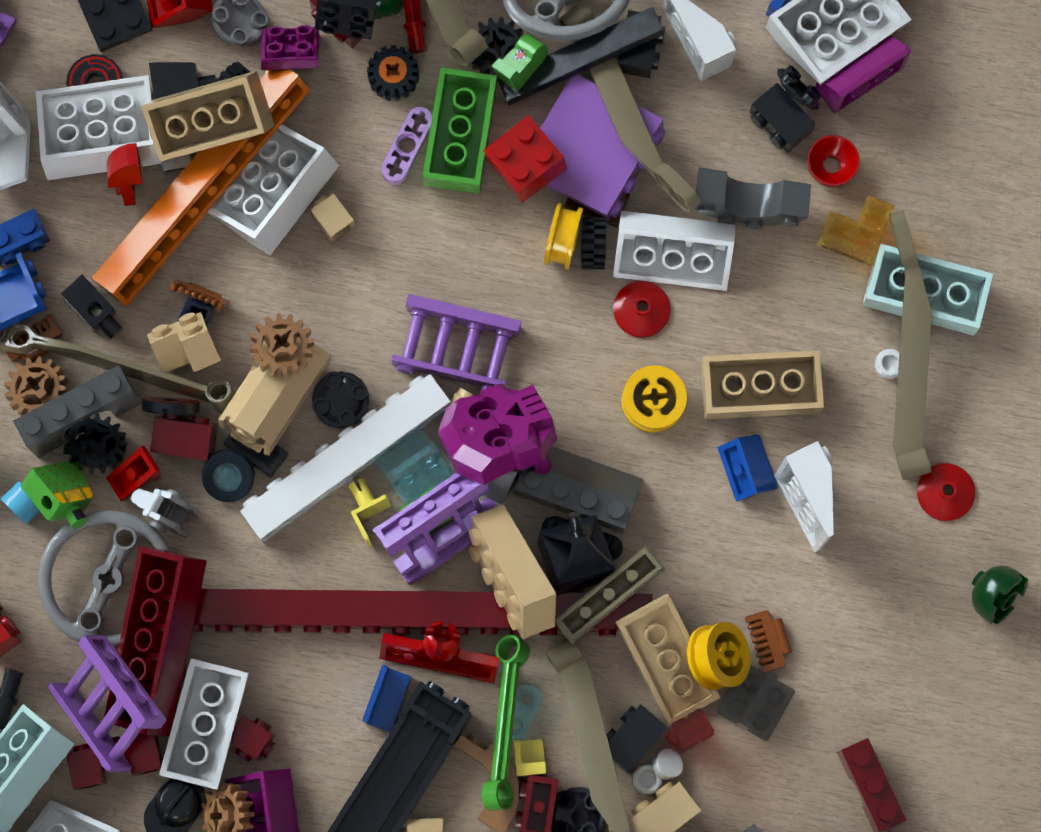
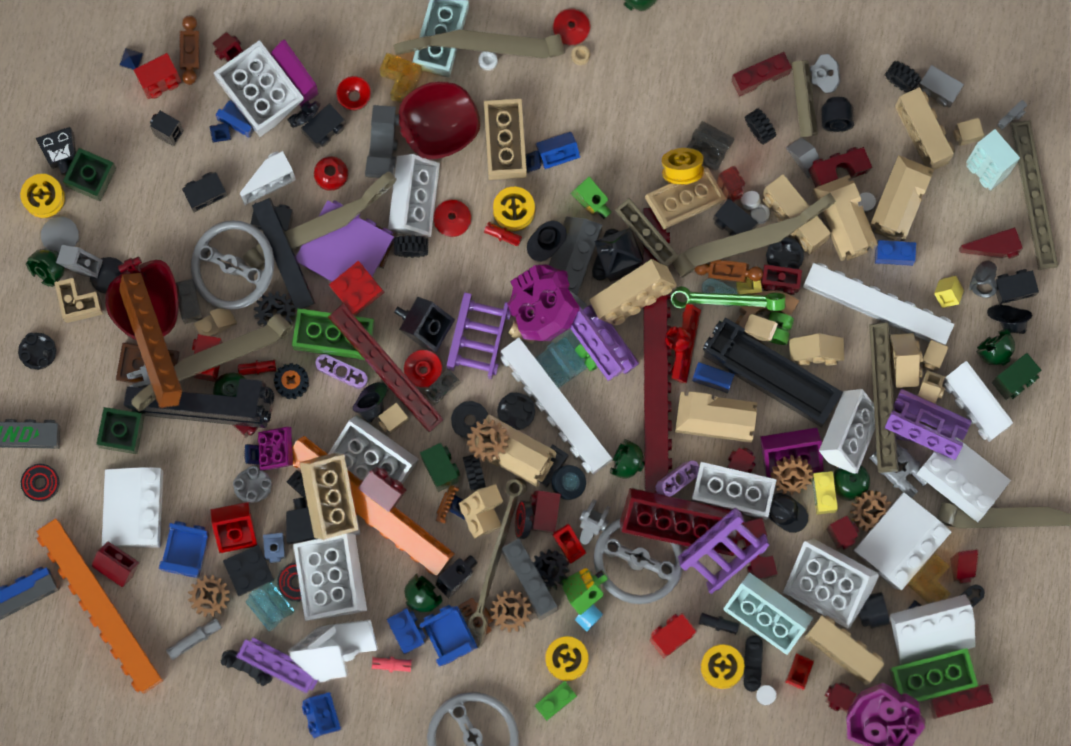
camera: 90 degrees left, 0 degrees up
(60, 42) = (269, 605): none -> clear light blue bracket
(66, 258) = (421, 594): none -> dark green cylinder
(124, 172) = (363, 554): red brick -> none
(153, 53) = (271, 539): none -> sand blue brick
(220, 197) = (382, 488): none -> brick
(225, 626) = (671, 478): none -> lavender beam
(236, 335) = (474, 472): none -> black tyre
(254, 283) = (439, 466): none -> dark green brick
(257, 564) = (627, 460): none -> dark green cylinder
(284, 16) = (251, 454): none -> dark blue slope
(318, 699) = (716, 417): none -> tan brick
(340, 318) = (461, 412): none -> black tile
(358, 184) = (370, 401): none -> black piece
(367, 505) = (586, 392): light yellow bracket -> none
(380, 291) = (442, 387): none -> clear smoke leg
(405, 203) = (385, 368): none -> dark red tile
(407, 248) = (423, 359): none -> red dish
(449, 800) = (785, 321): none -> bright green wheel
(457, 770) = (760, 328): none -> tan slope
(472, 262) = (425, 323): none -> black piece
(520, 62) = (287, 293): bright green leg -> none
(551, 729) = (730, 271): none -> dark orange plate
(563, 236) = (407, 265): yellow wheel -> none
(601, 444) = (546, 240): none -> black piece
(614, 382) = (503, 234): none -> red axle
(679, 508) = (584, 195): none -> bright green torso
(710, 144) = (331, 182): none -> red piece
(728, 429) = (533, 161): none -> dark blue slope
(776, 640) = (667, 133): dark orange piece -> none
(784, 781) = (760, 126): none -> black tyre
(789, 284) = (438, 119): none -> dark red piece
(807, 486) = (580, 104): white slope -> none
(900, 505) = (580, 55): none -> tan tile

